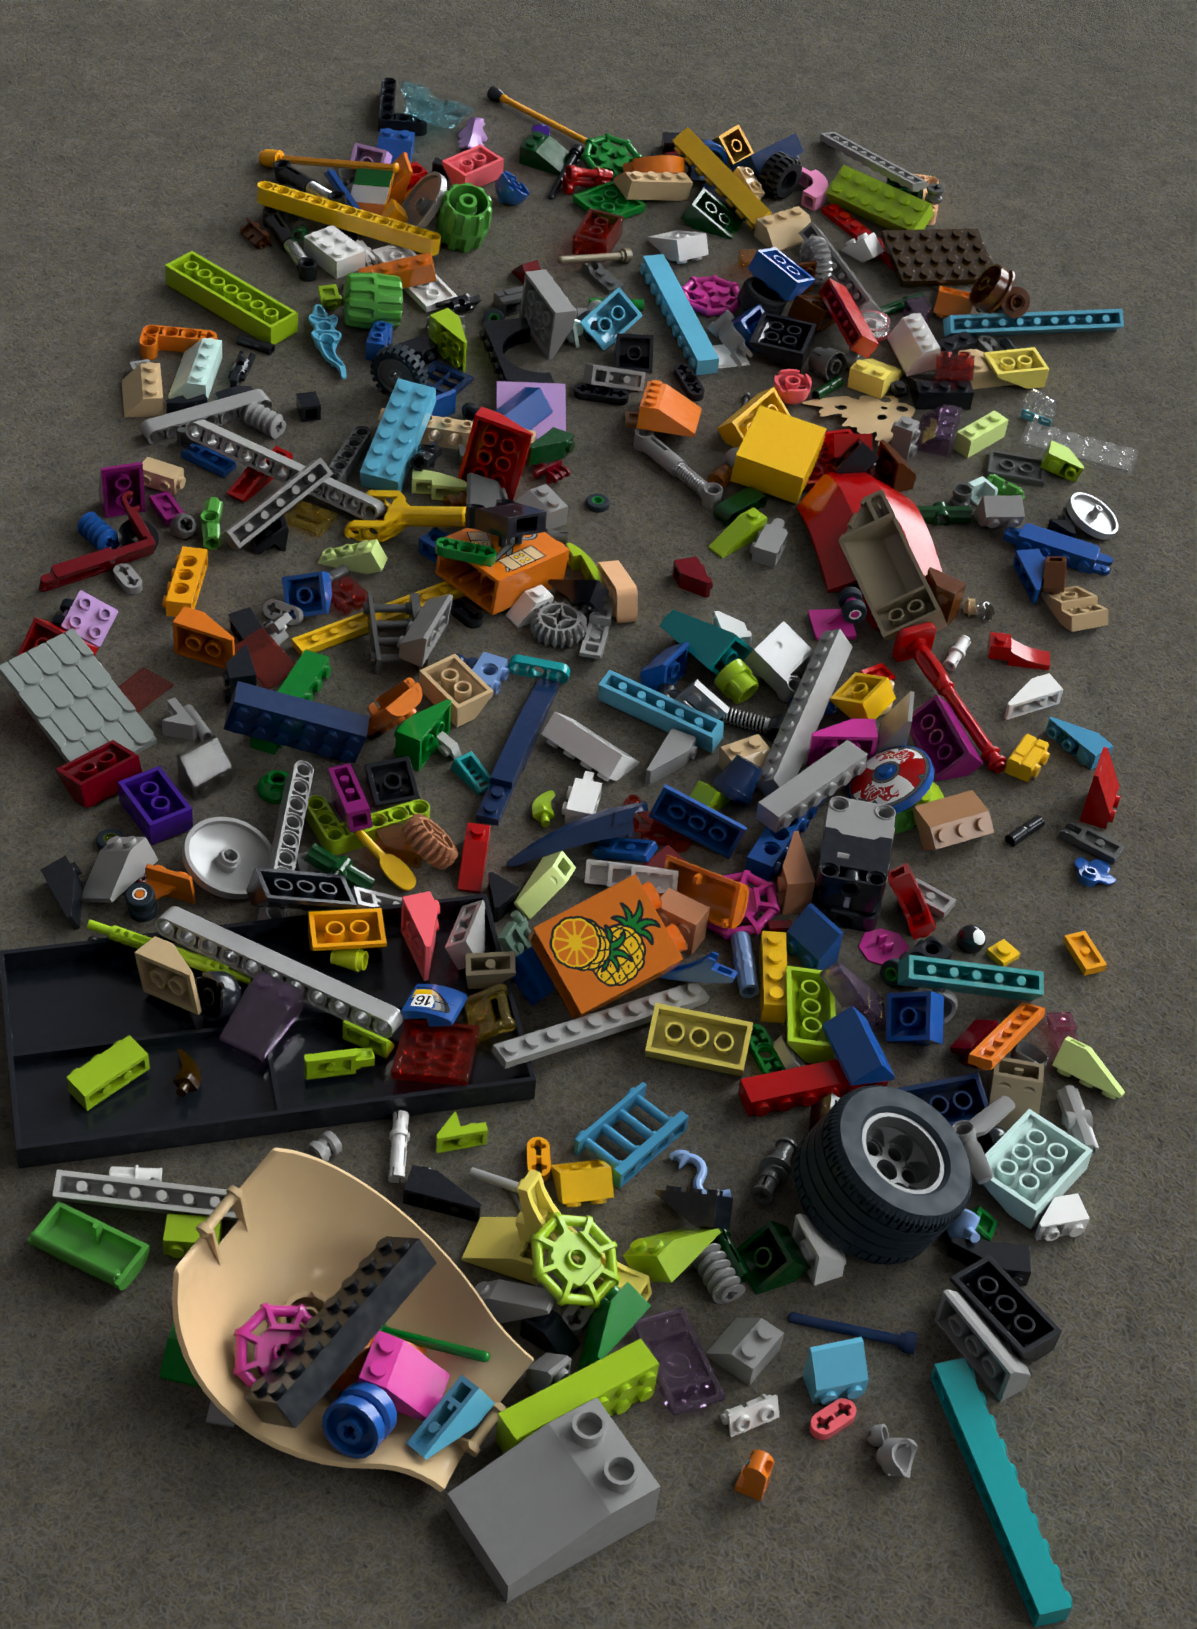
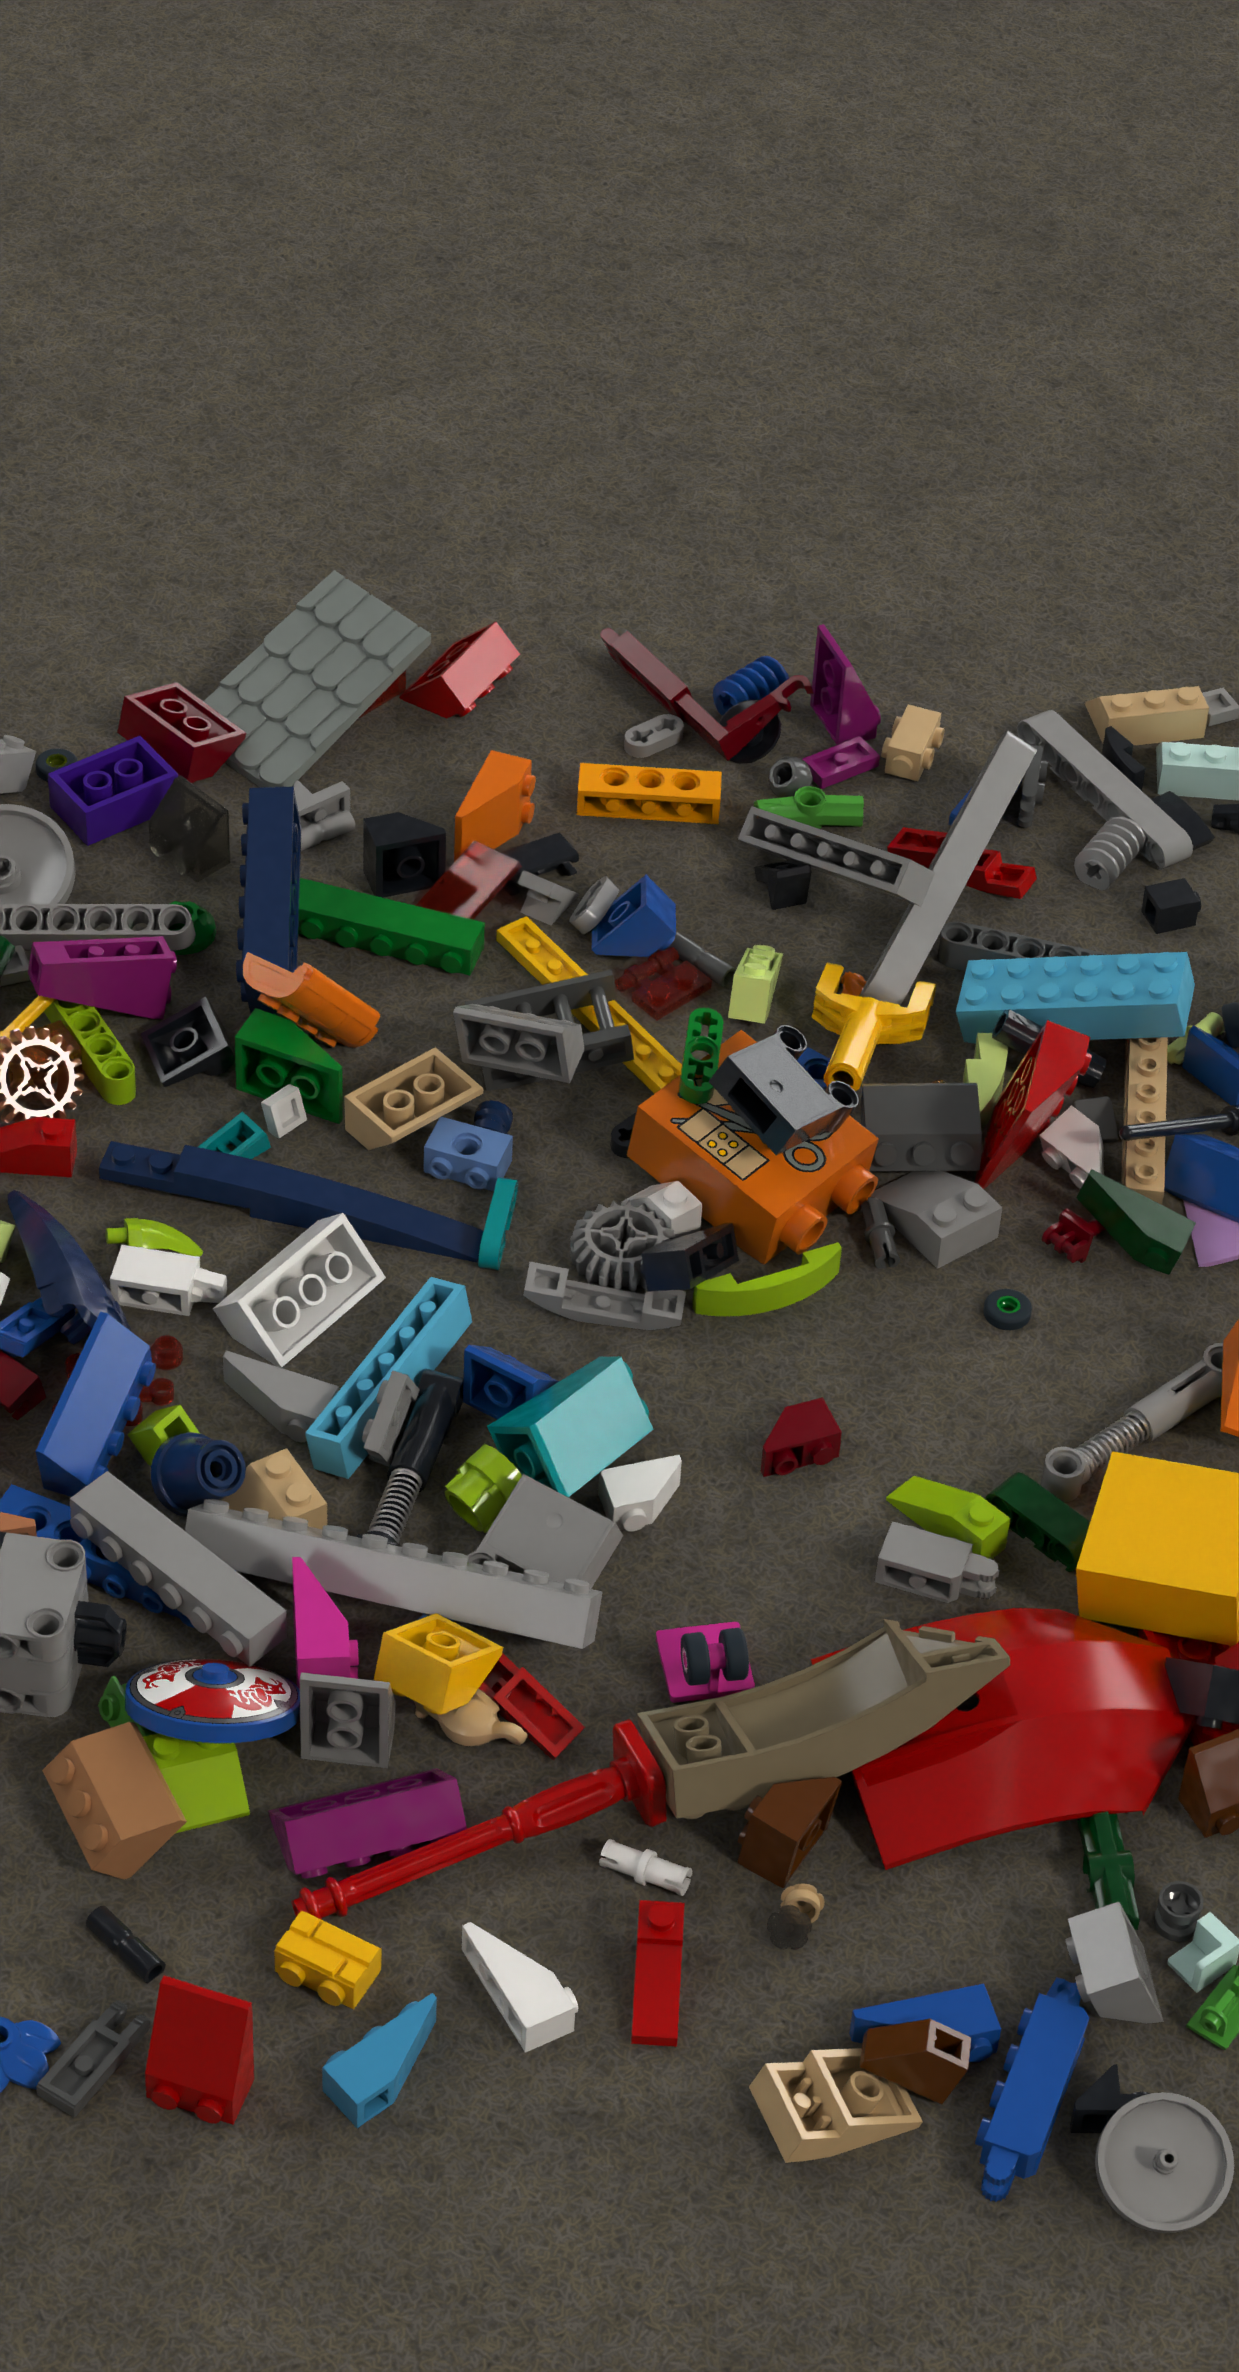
camera: 90 degrees right, 0 degrees up
(87, 617) = (530, 688): lavender plate -> none
(144, 688) = (391, 771): clear red piece -> none
(311, 518) = (869, 935): clear yellow plate -> none
(621, 590) = (730, 1316): light nougat beam -> none

